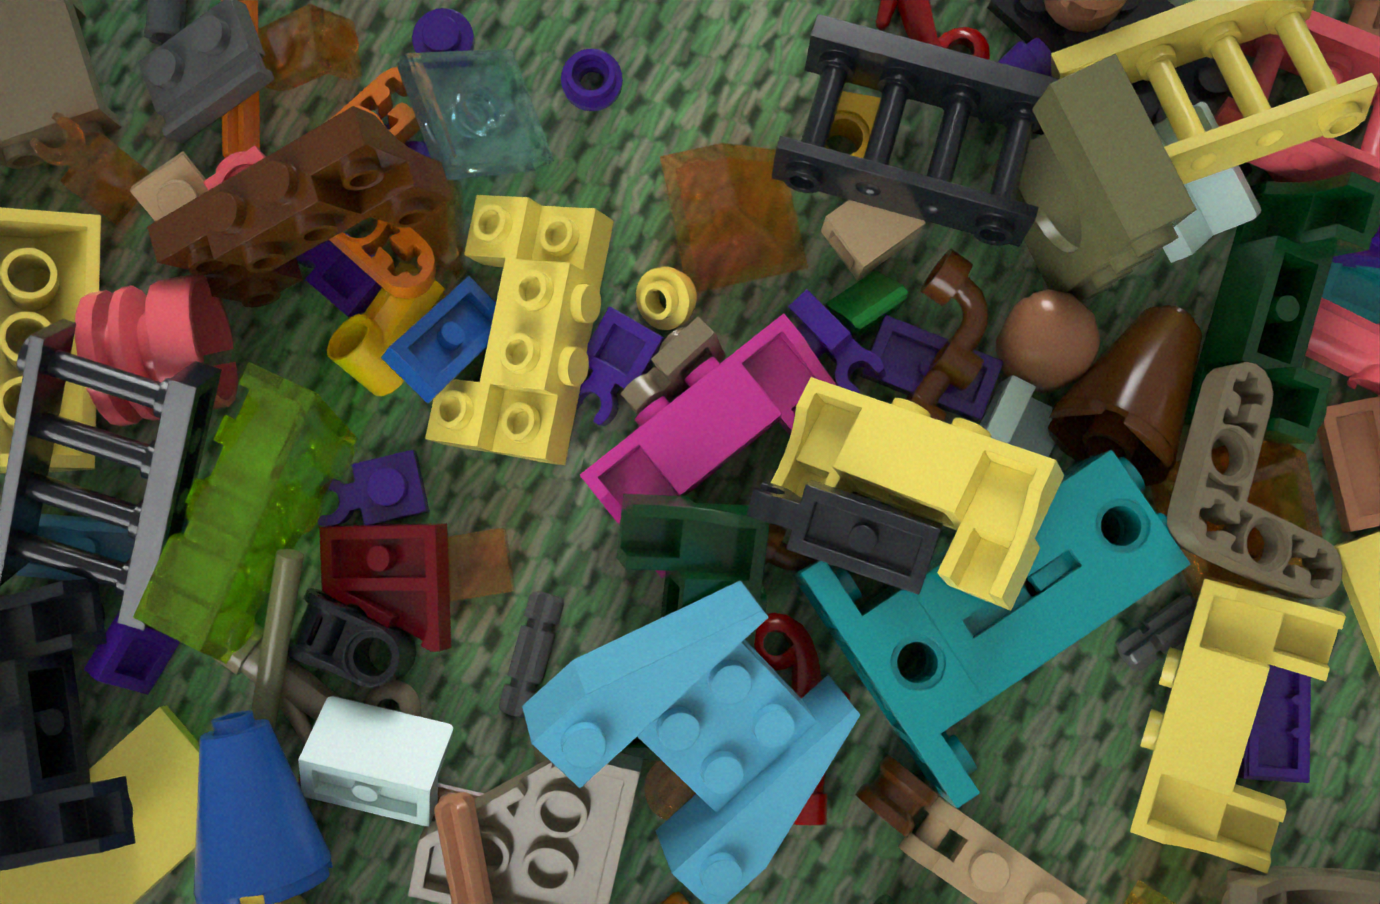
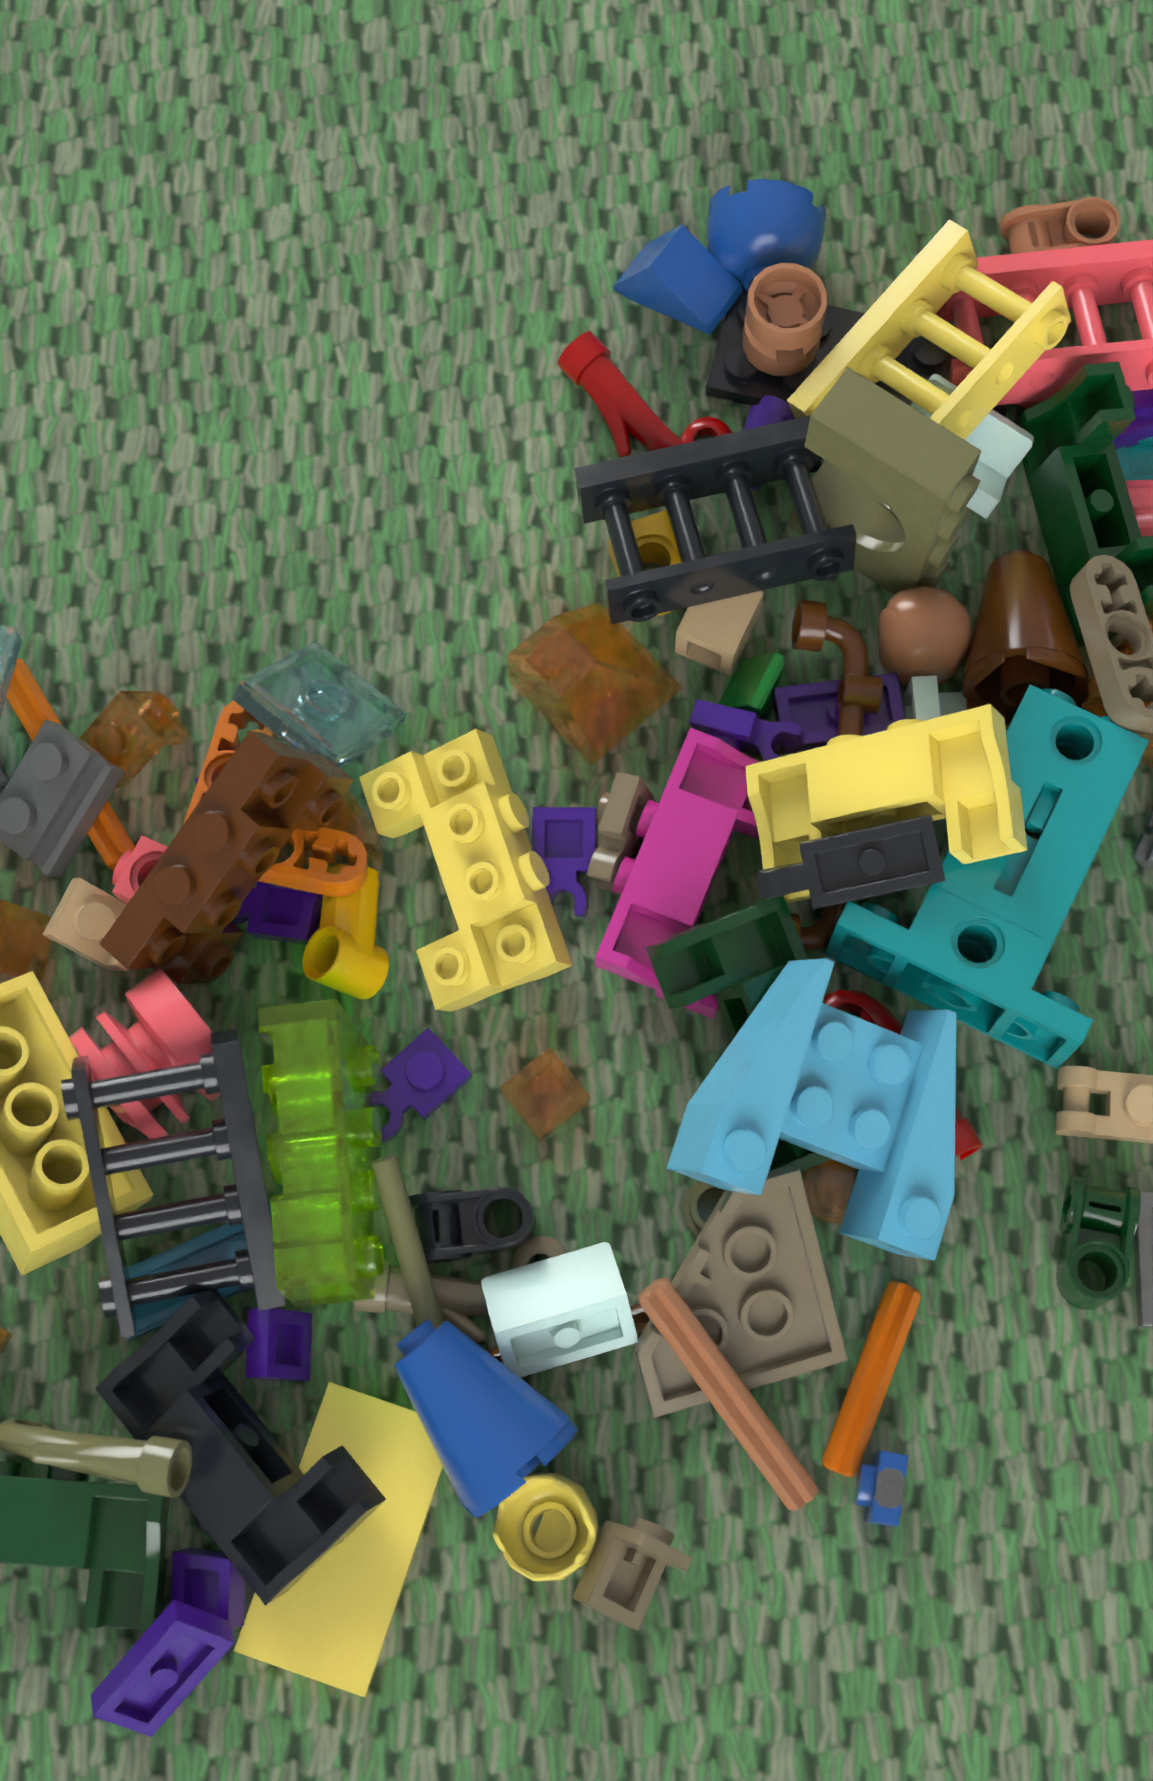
camera: 30 degrees left, 10 degrees down
(392, 575) = (475, 1142): dark red wing -> none
(443, 32) = (244, 657): dark purple plate -> none
(443, 340) = (407, 911): blue plate -> none
(531, 651) = (638, 1147): dark grey axle -> none
(591, 61) = (396, 612): dark purple plate -> none
(679, 296) = (587, 764): light yellow plate -> none
(896, 795) = (1027, 1084): reddish brown wheel -> none

